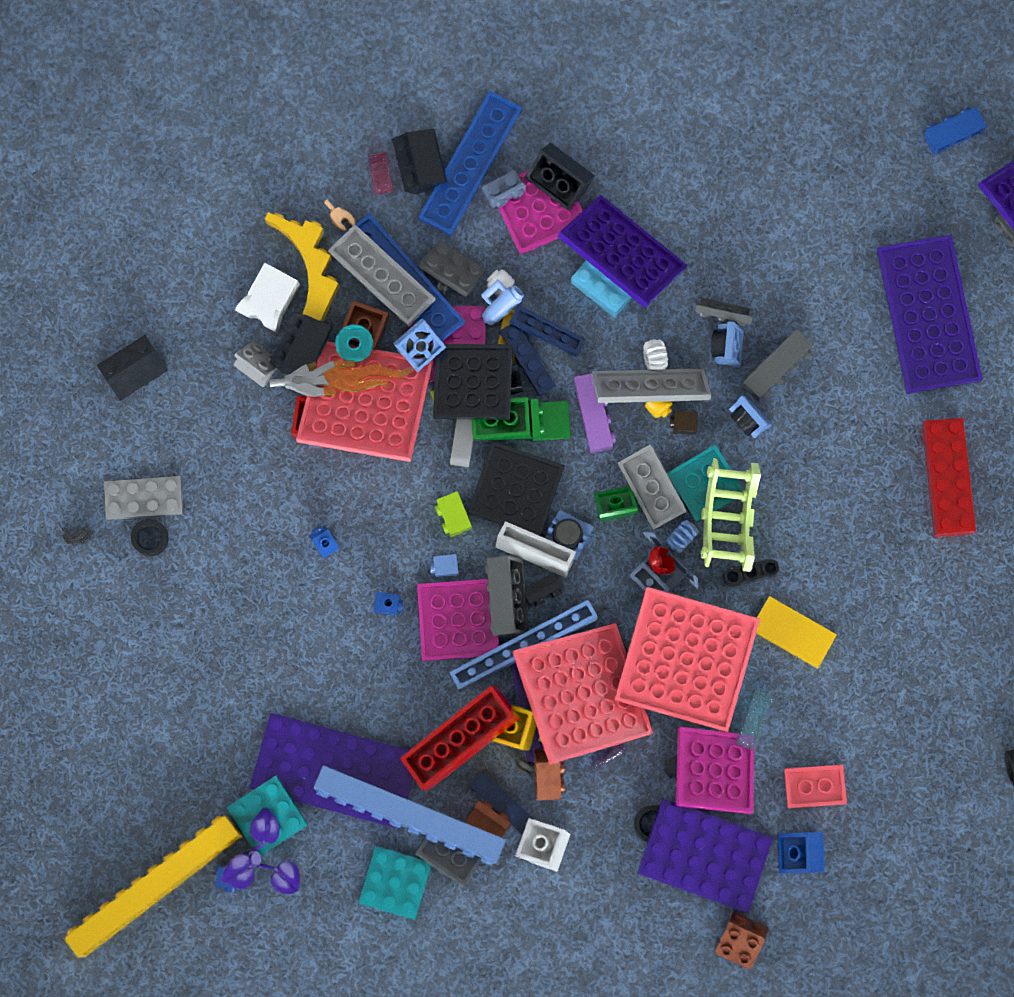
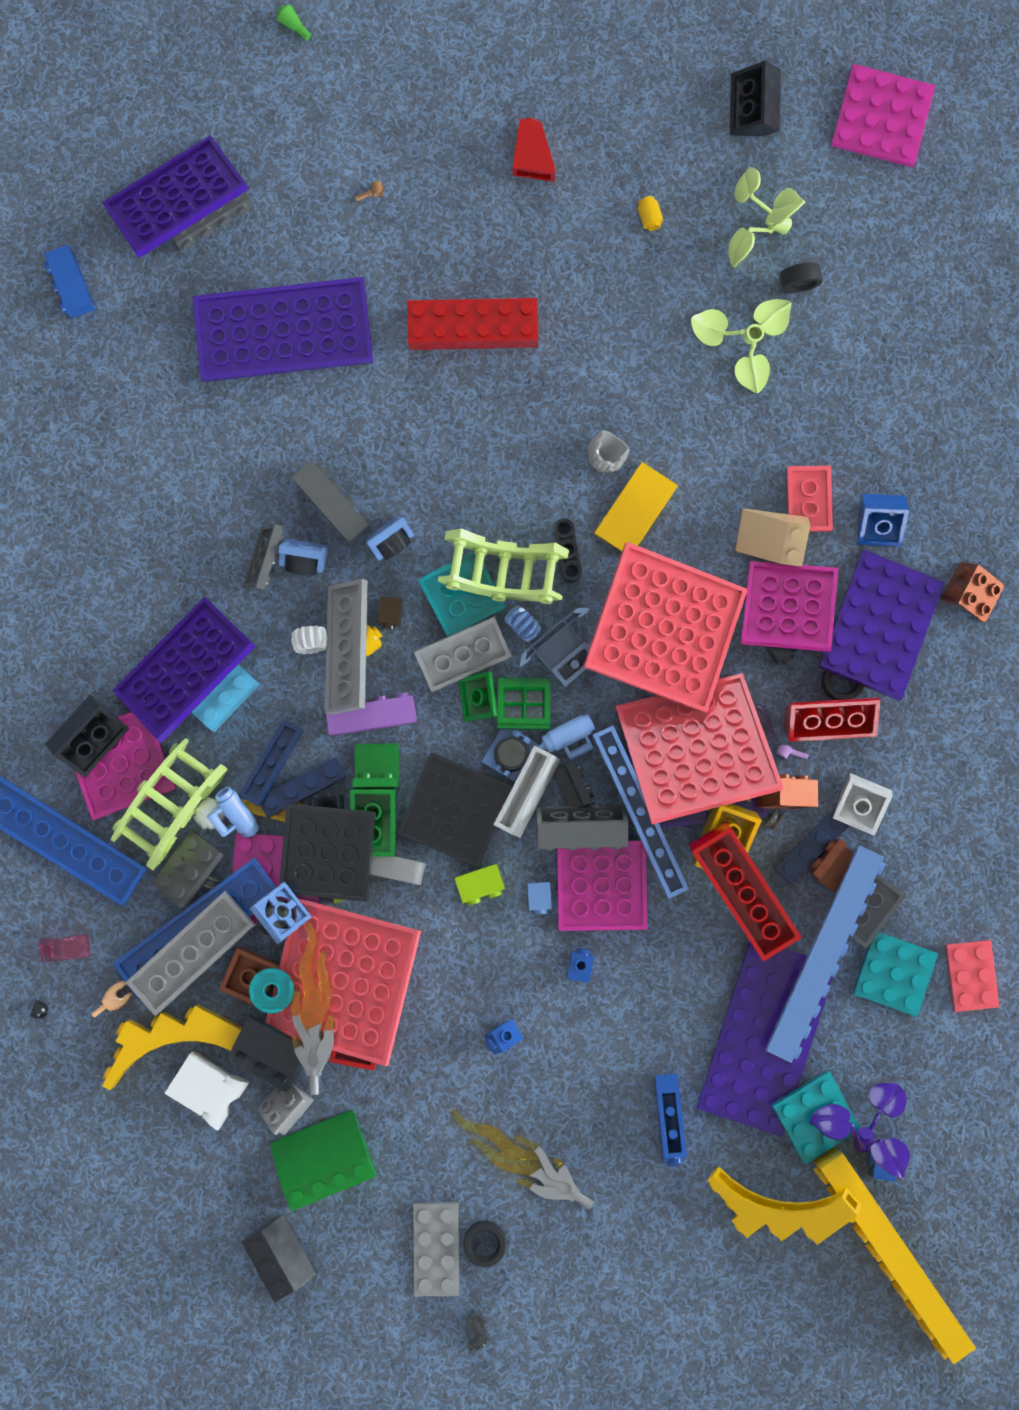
camera: 90 degrees left, 5 degrees up
(181, 786) = (783, 1218): none -> yellow arch
(201, 595) = (532, 1163): none -> piece
(214, 398) = (322, 1160): none -> green slope
(259, 688) = (670, 1120): none -> blue slope
(328, 157) = (39, 1010): none -> black hinge
(396, 952) = (972, 975): none -> coral plate
(419, 160) = (53, 901): black slope -> none
(496, 259) = (181, 814): none -> yellowish green fence
(504, 189) = (96, 802): sand blue bracket -> none
(586, 775) = (784, 751): none -> lavender hand
(588, 582) = (568, 734): none -> light blue piece
(612, 543) = (523, 704): none -> green piece
(615, 812) = (832, 719): none -> red slope
(660, 561) = (551, 650): red hair -> none
(754, 719) = (733, 559): clear light blue tile -> none
(777, 754) = (773, 536): none -> tan slope
(842, 602) = (607, 452): none -> light grey hair
(928, 728) = (773, 320): none -> yellowish green plant

